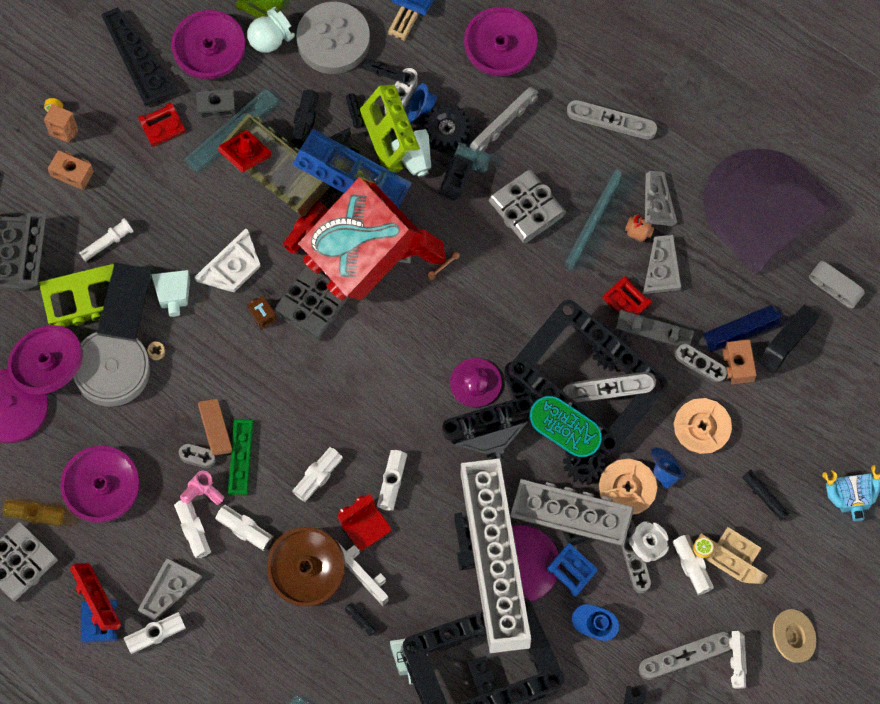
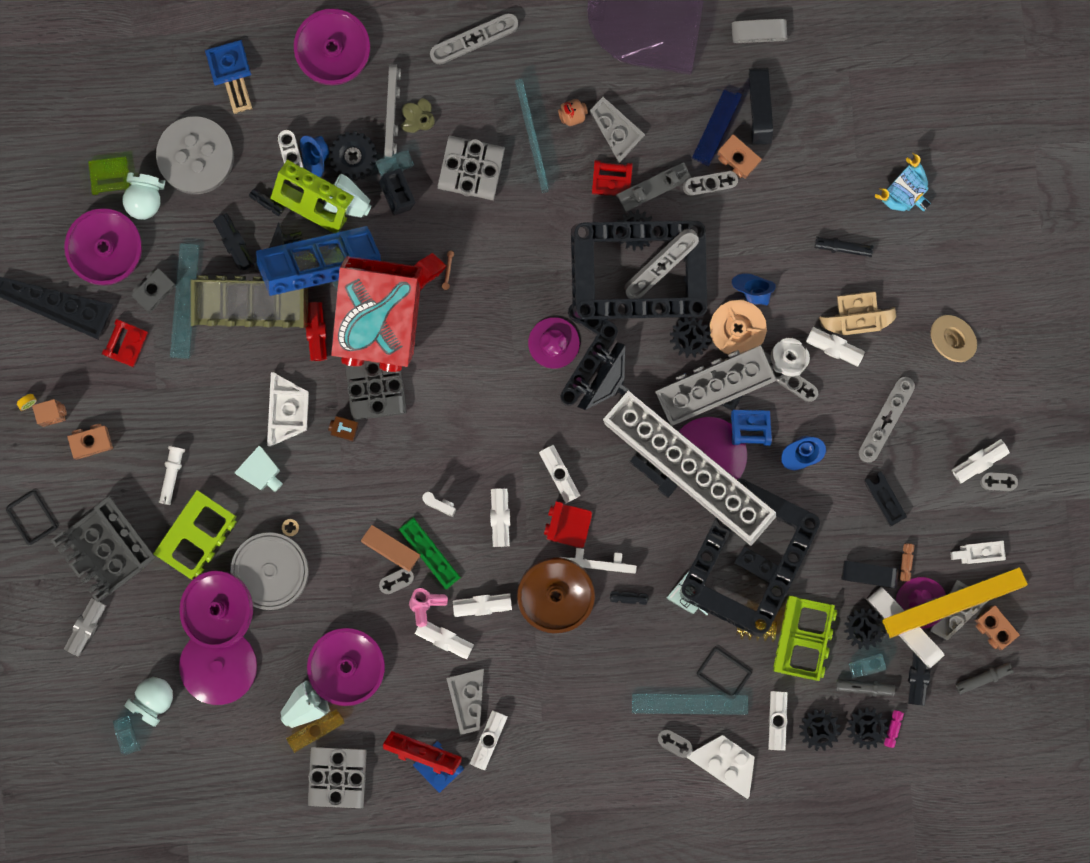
camera: 45 degrees left, 15 degrees up
(41, 486) = (303, 706): none -> light aqua cone
(124, 302) = (235, 512): black tile -> none
(247, 148) = (217, 313): red plate -> none
(282, 426) = (444, 506): none -> white plate
(380, 69) = (247, 153): black pin -> none
(520, 140) = (415, 114): none -> olive plate
(565, 426) = (656, 324): tile -> none
(658, 202) = (568, 77): light grey wing -> none
(703, 547) = (834, 329): tile -> none
(709, 414) = (767, 228): light nougat piece -> none
(738, 661) = (928, 391): white hinge -> none

